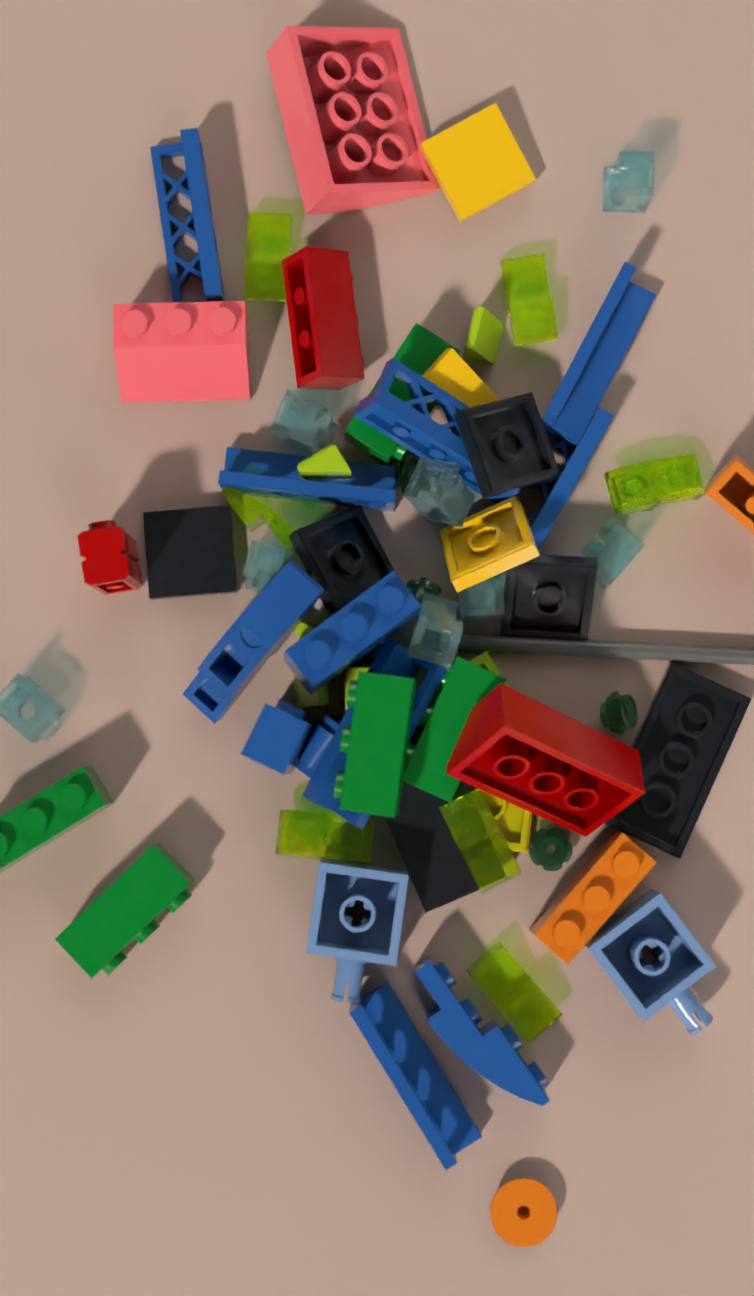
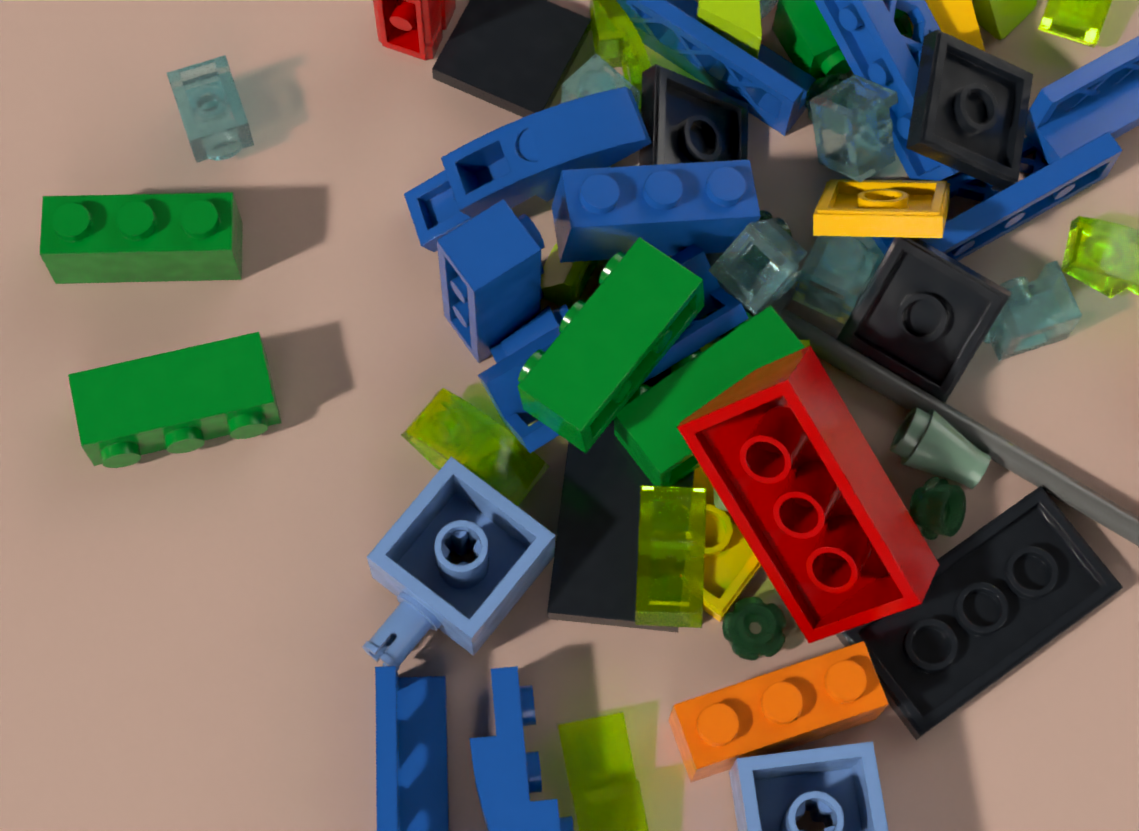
camera: 25 degrees right, 15 degrees down
(597, 674) = (936, 447): none -> sand green cone

